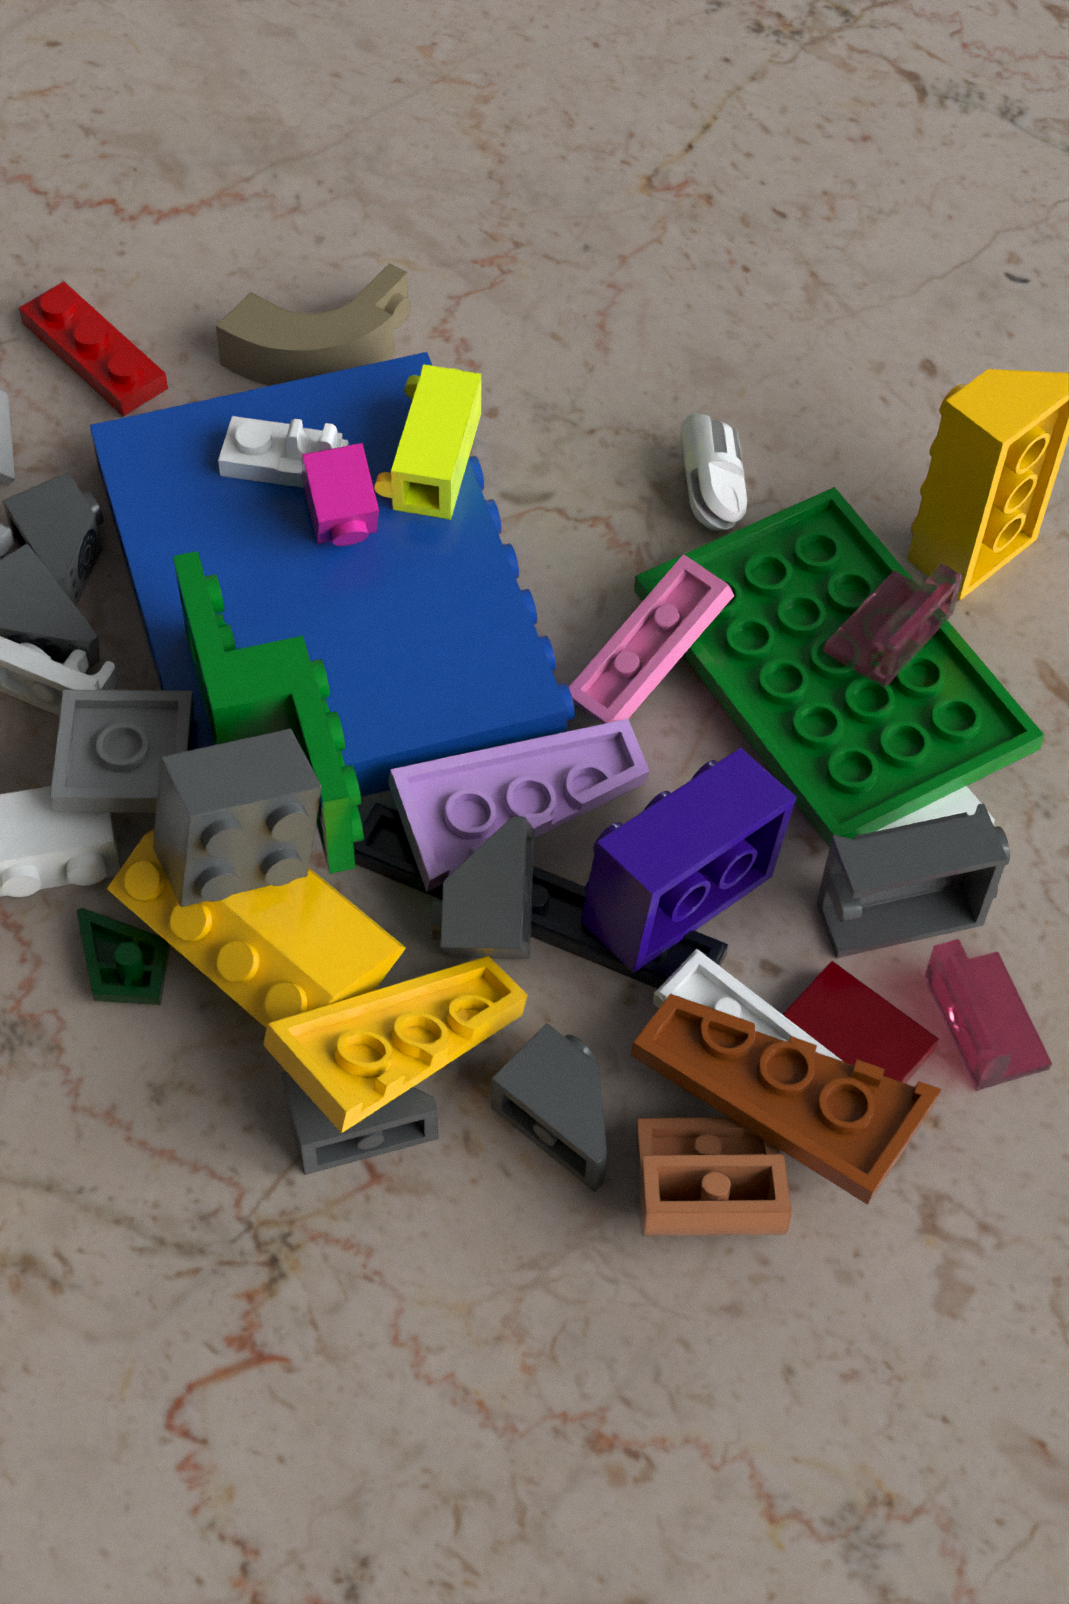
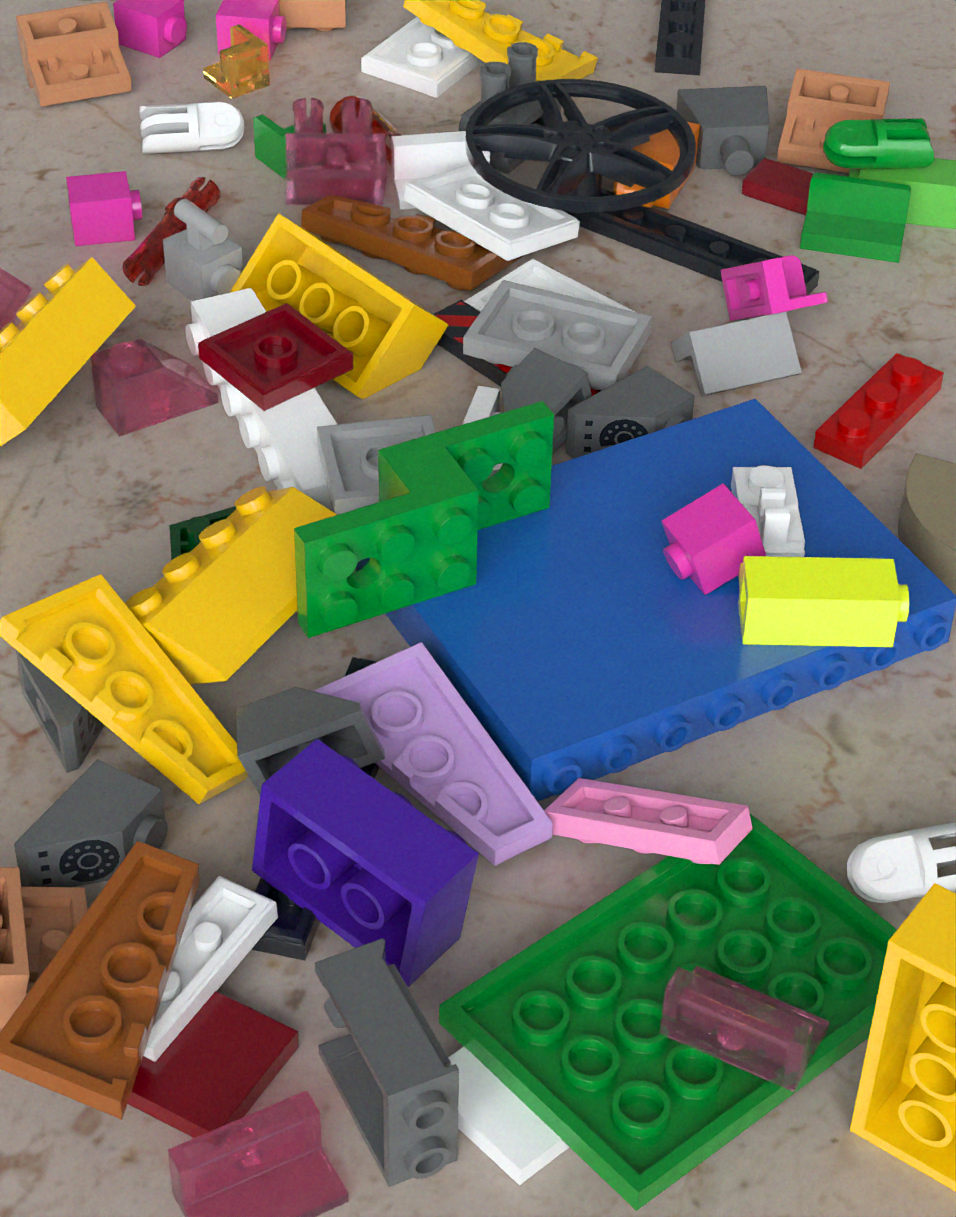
camera: 80 degrees right, 15 degrees down
(235, 817) = (278, 481): dark grey brick -> none

